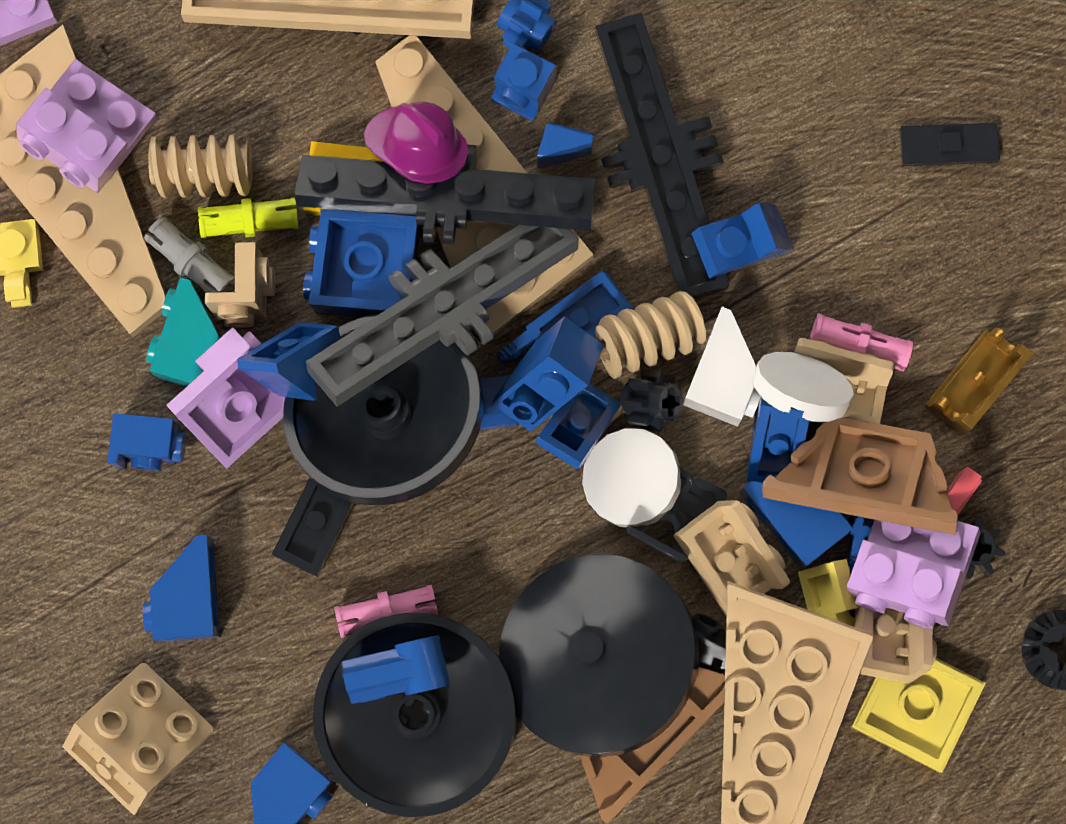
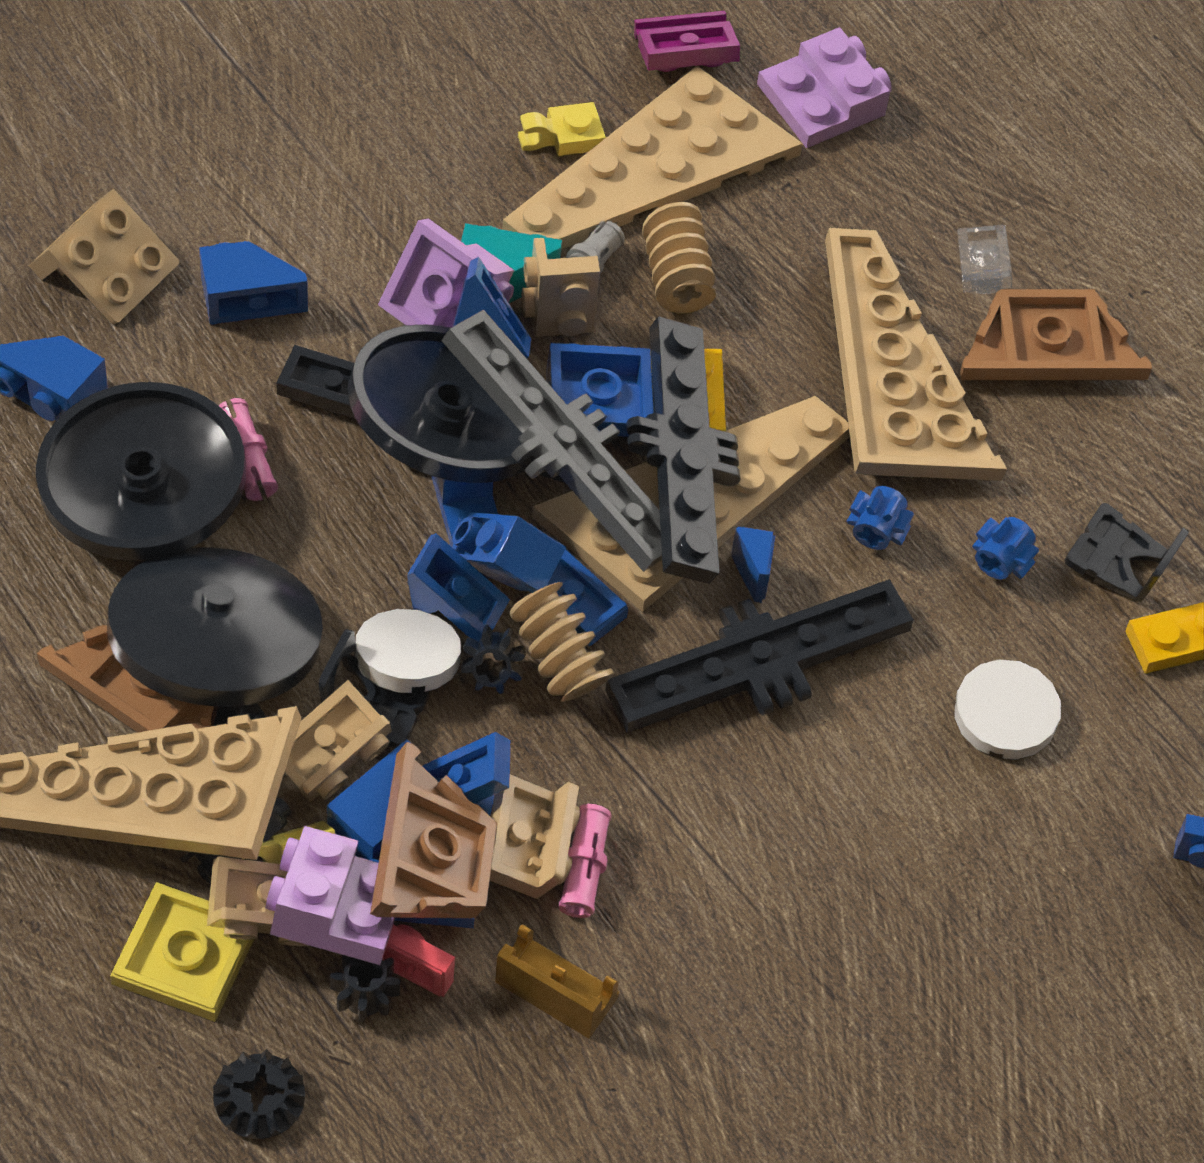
camera: 75 degrees right, 25 degrees down
(83, 126) = (699, 156): lavender plate -> none
(145, 442) = (391, 229): blue brick -> none
(248, 217) = (633, 300): neon yellow pin -> none
(407, 668) = (183, 439): blue piece -> none
(418, 142) = (731, 419): magenta piece -> none
(523, 82) = (816, 520): blue brick -> none
(725, 375) = (539, 723): white slope -> none
(742, 240) = (681, 734): blue slope -> none
(804, 384) = (522, 774): white tile -> none
(949, 144) = (827, 943): black piece -> none

